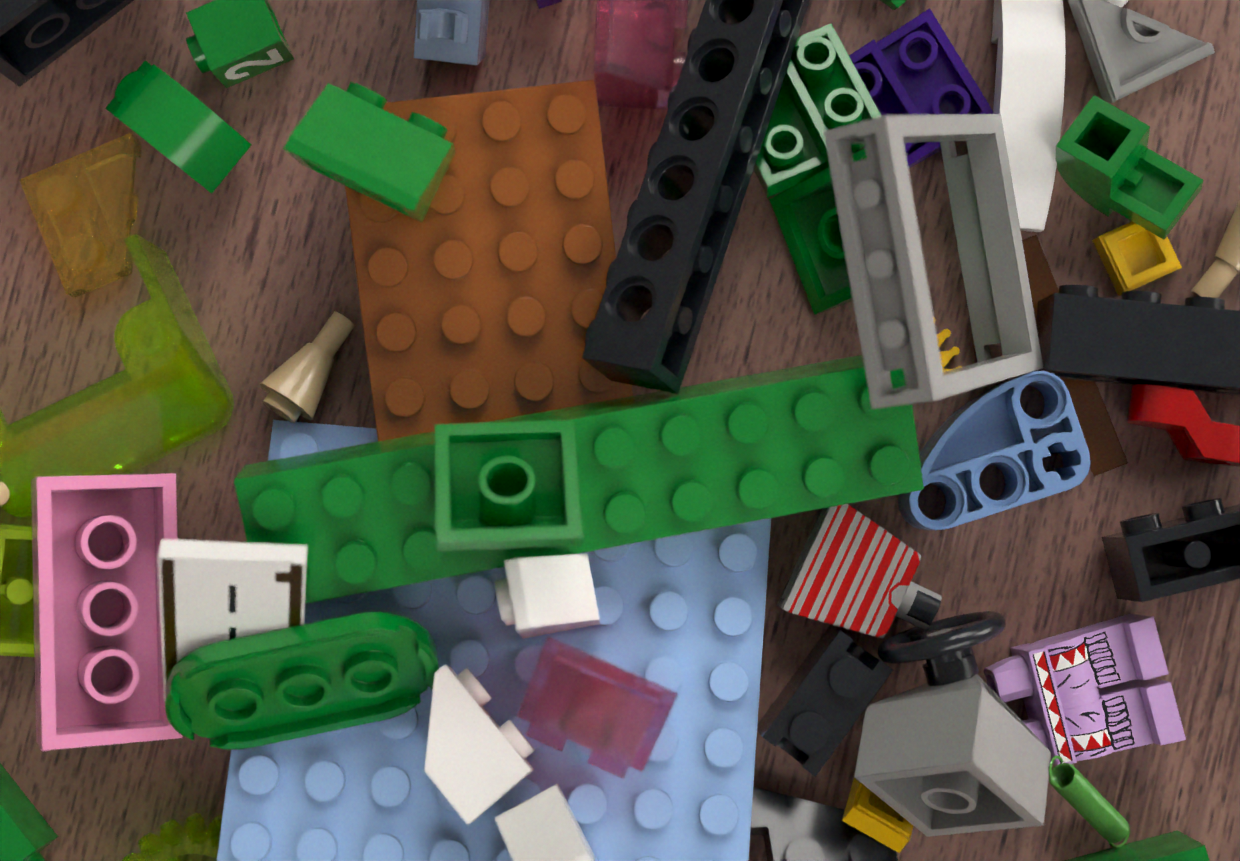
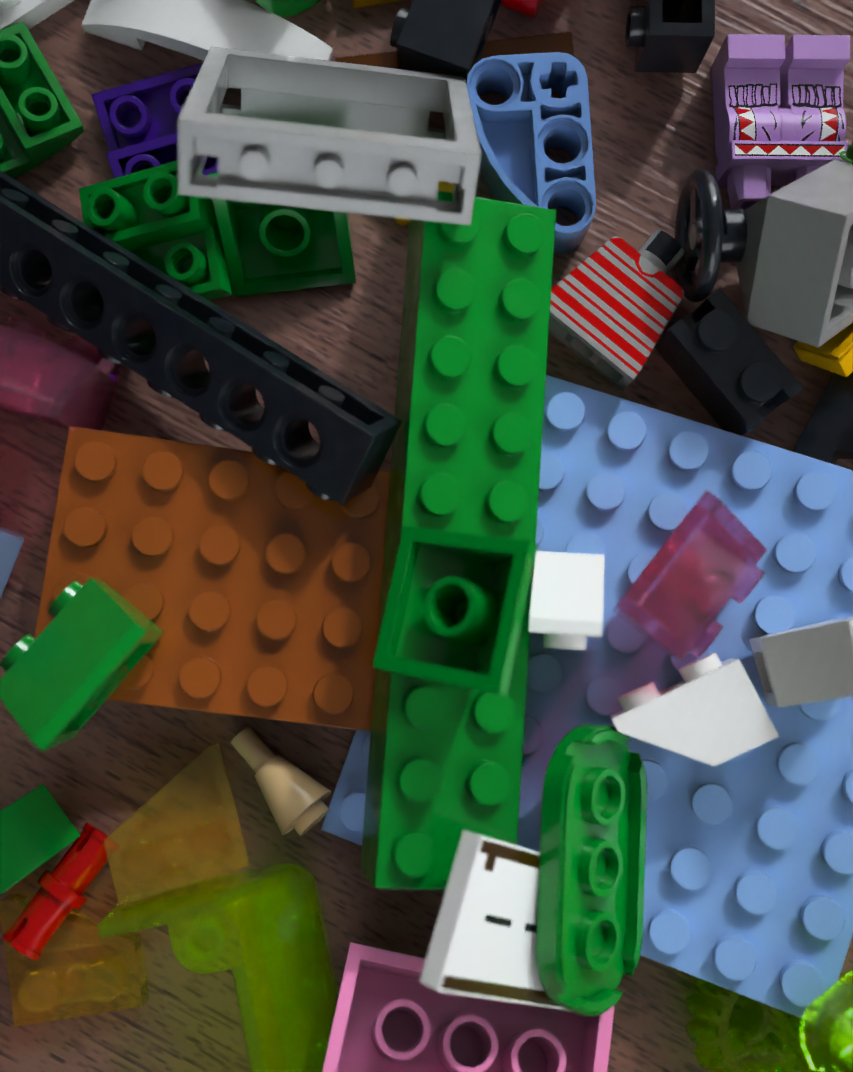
camera: 70 degrees left, 0 degrees up
(155, 189) = (59, 893): none -> red pin
(236, 286) = (179, 834): none -> clear yellow wing

